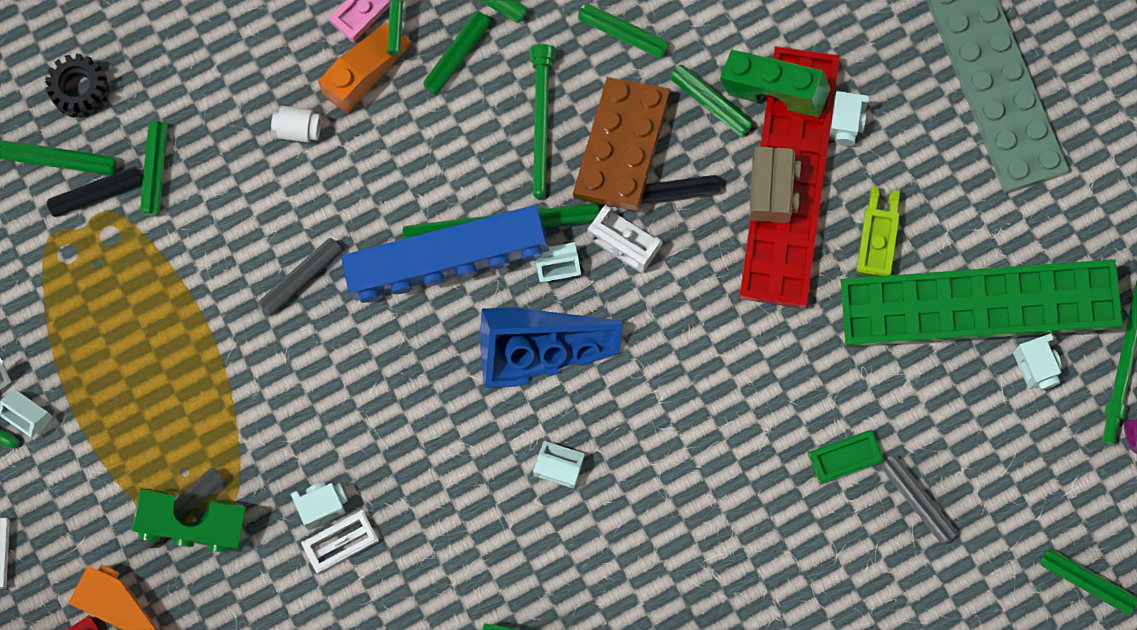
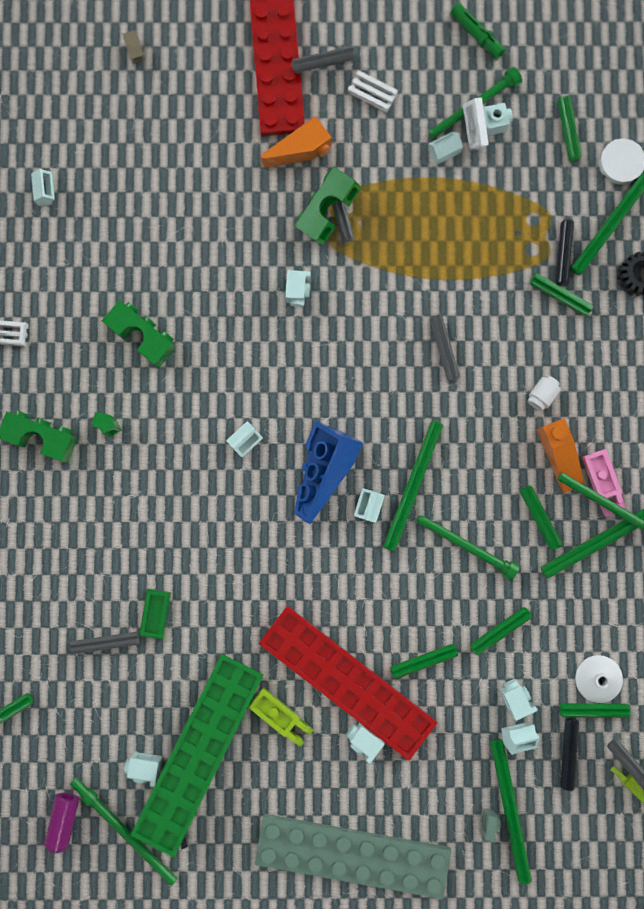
camera: 115 degrees right, 10 degrees up
(333, 530) = (270, 309): white tile -> none
(445, 253) = (410, 439): blue brick -> none
(622, 144) = (424, 588): dark orange plate -> none
(623, 239) = (363, 555): white hinge -> none
(681, 189) = (378, 602): black axle -> none
(772, 184) = (343, 667): dark tan brick -> none
(798, 86) = (406, 714): green arch -> none

